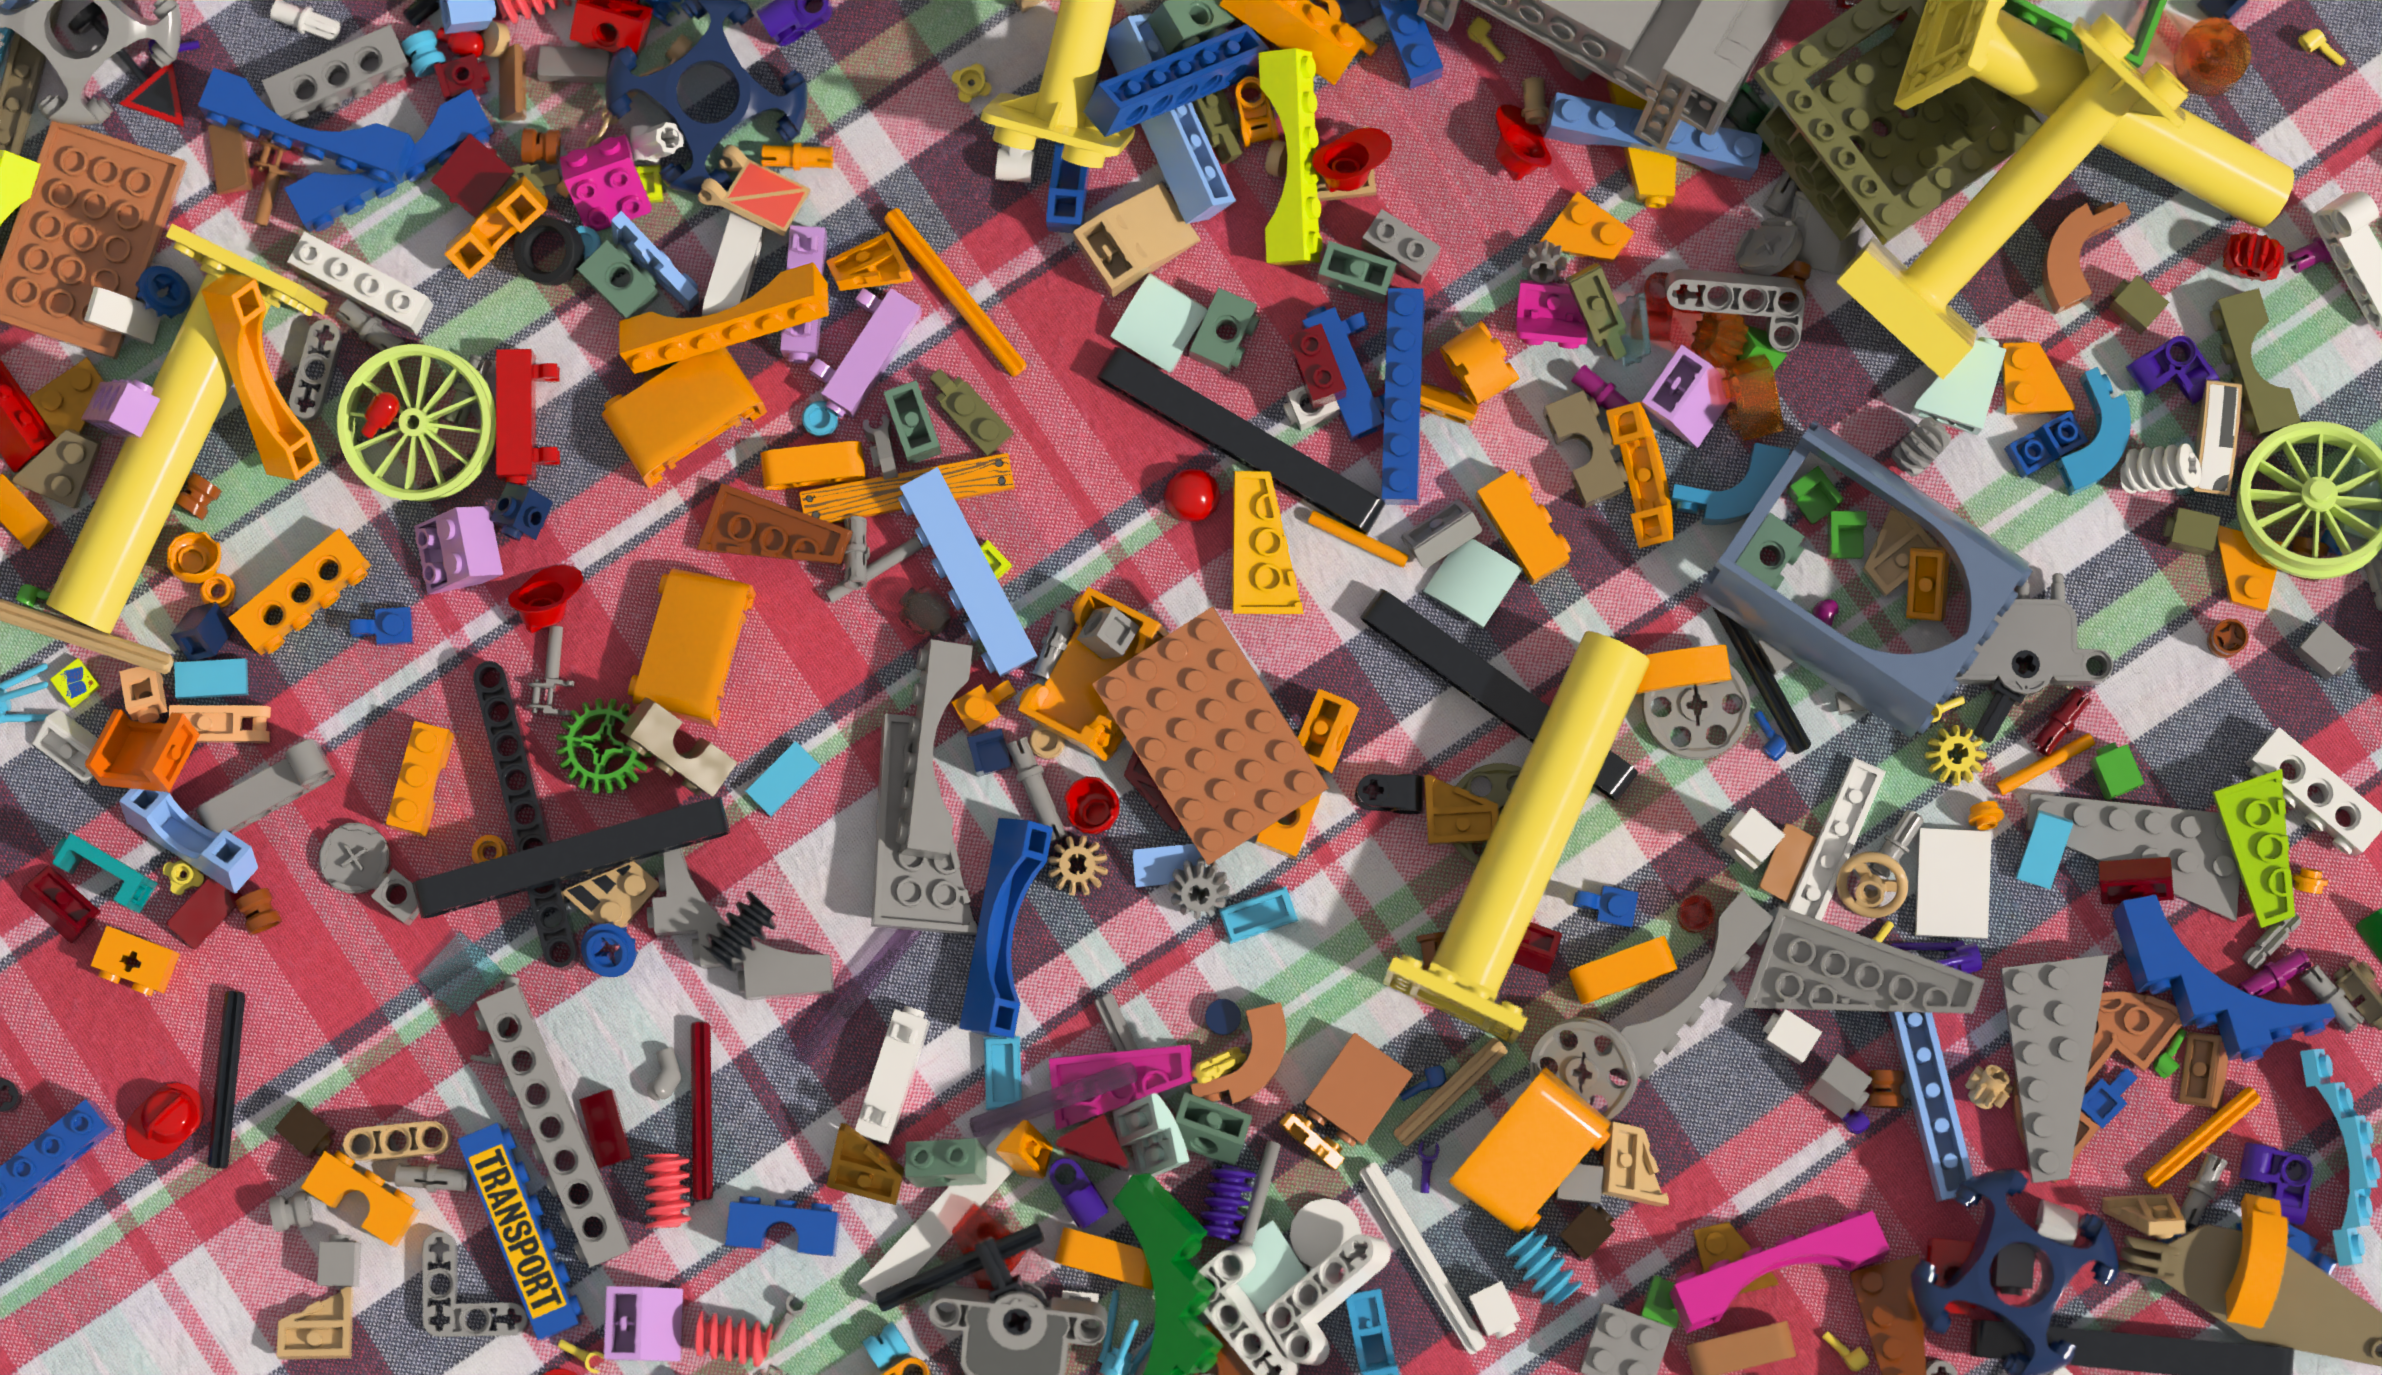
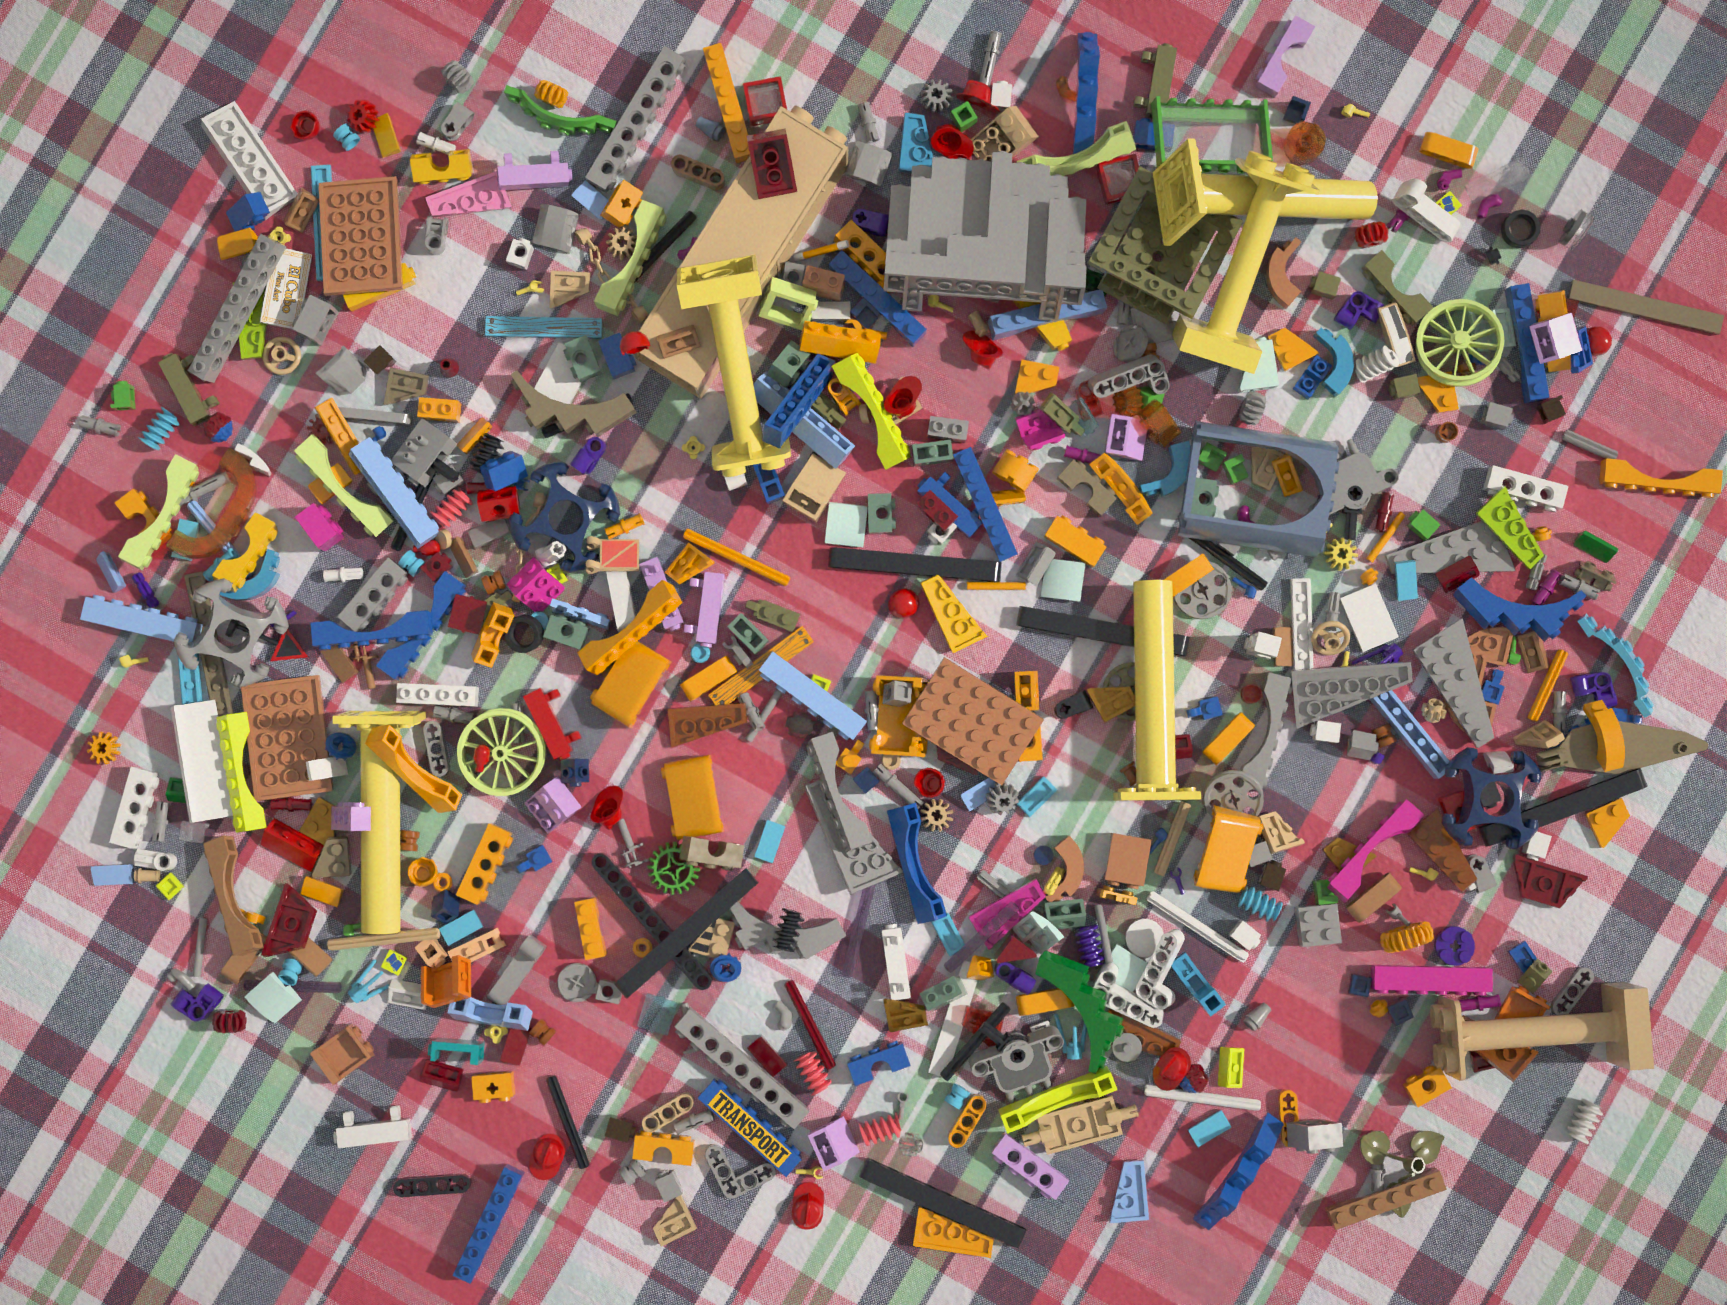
camera: 30 degrees left, 5 degrees up
(37, 348) = (291, 804): none -> dark red pin

